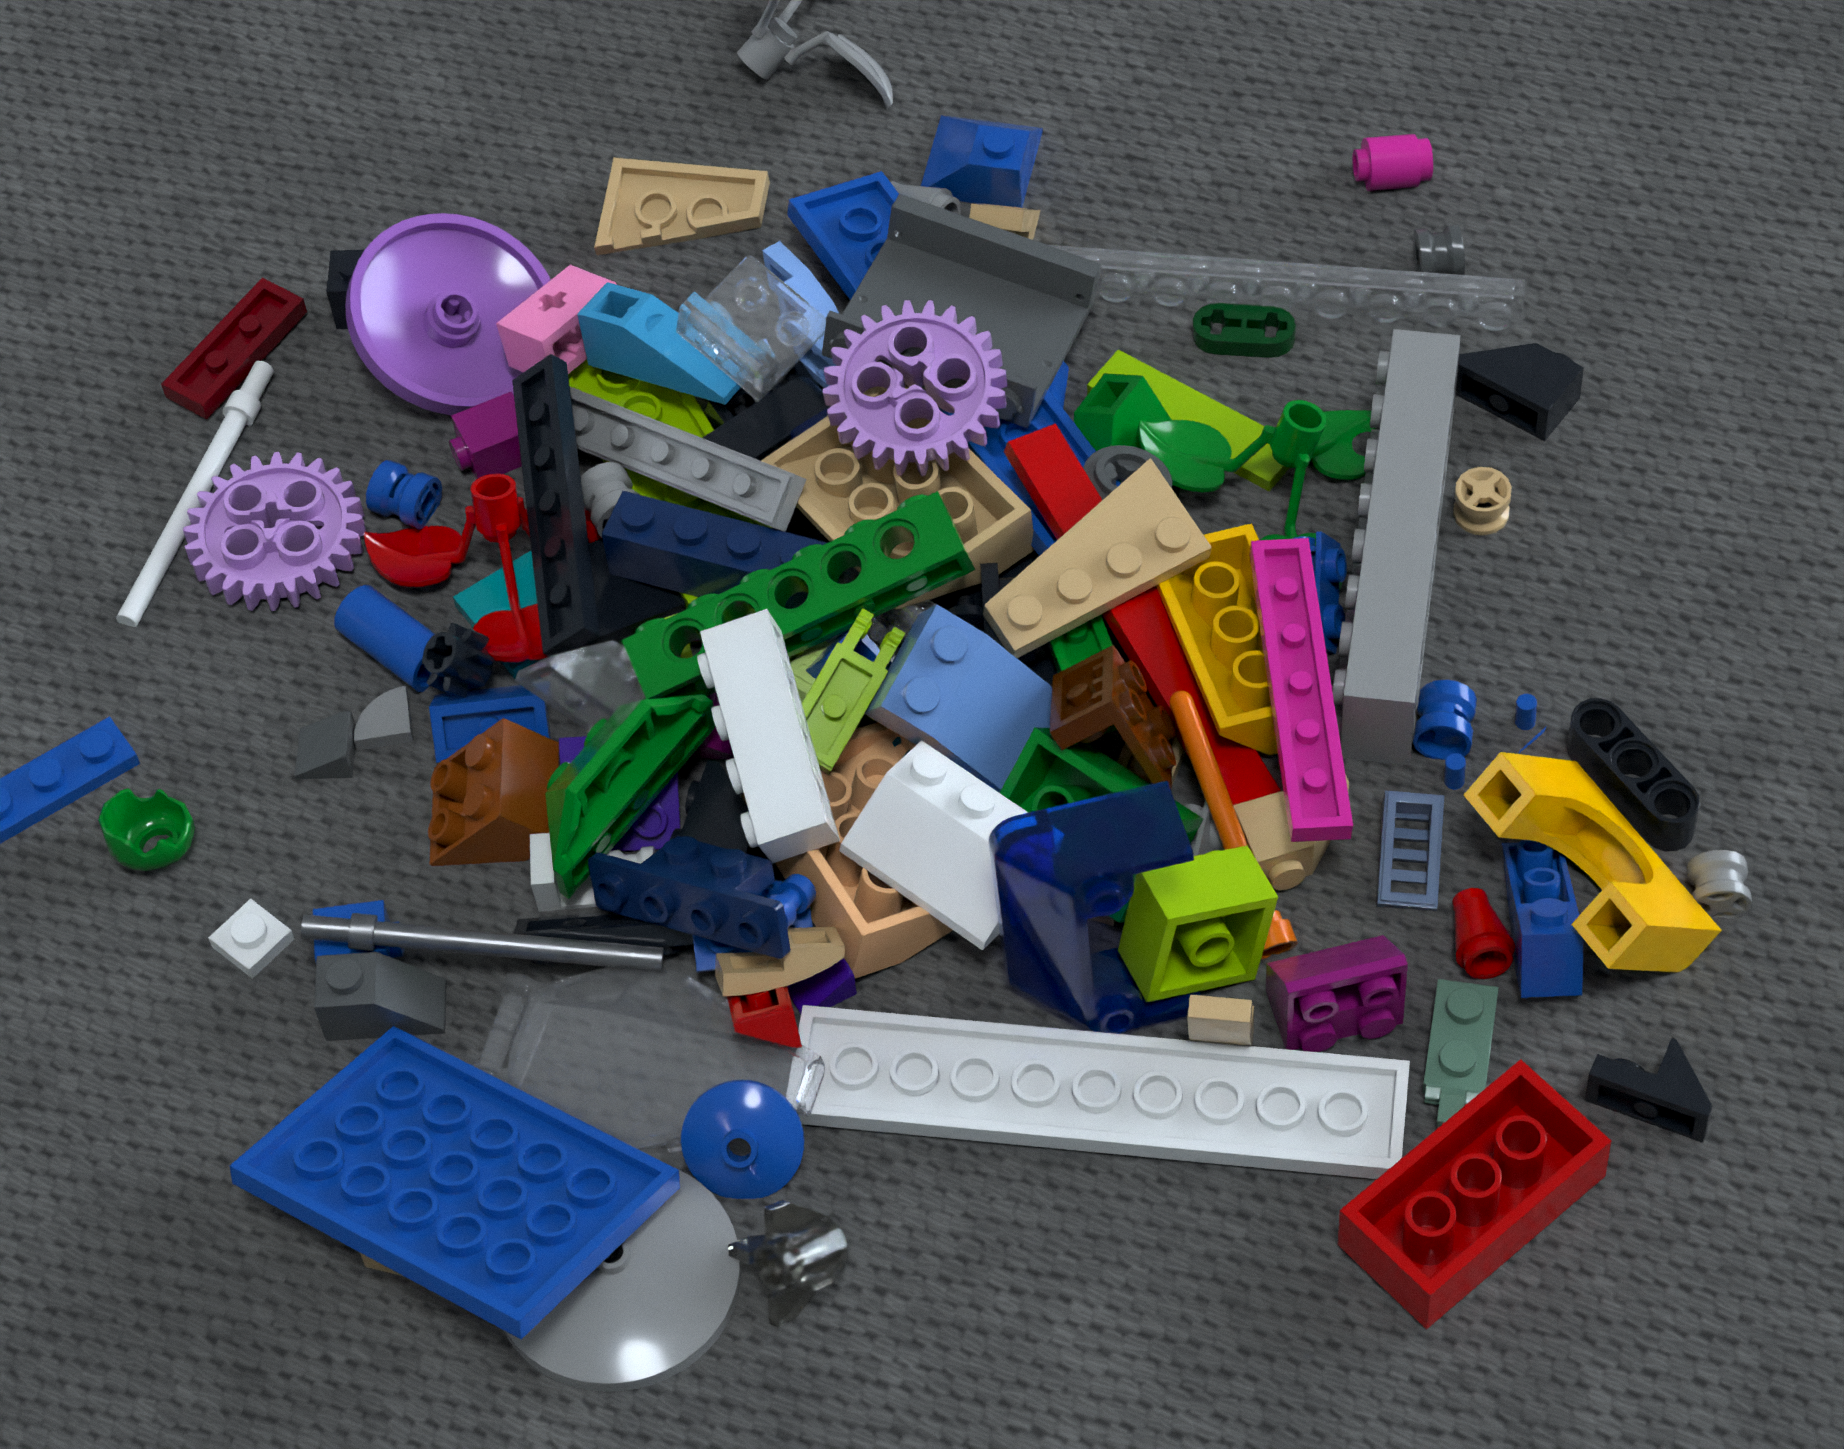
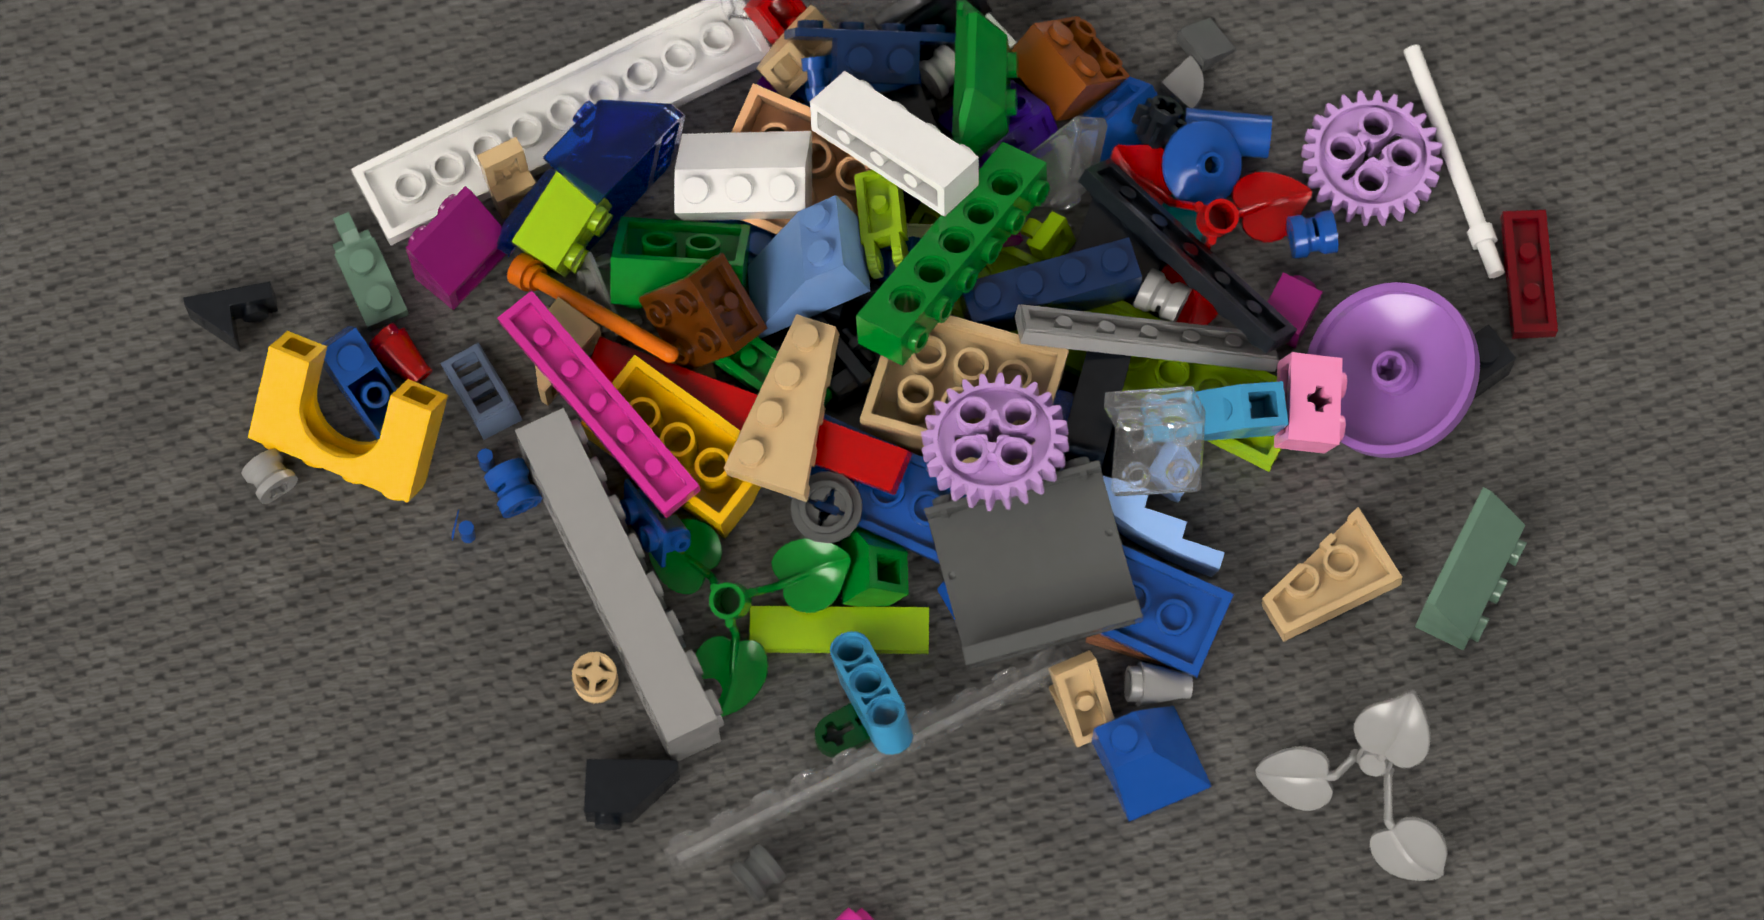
camera: 140 degrees right, 15 degrees up
(452, 598) = (1186, 157): none -> blue dish
(551, 131) = (1473, 572): none -> sand green slope
(1208, 286) = (871, 692): none -> dark azure beam
(1226, 956) = (520, 213): none -> clear blue tile
(1473, 1193) = (296, 173): red brick -> none
(1626, 751) = (354, 507): black beam -> none

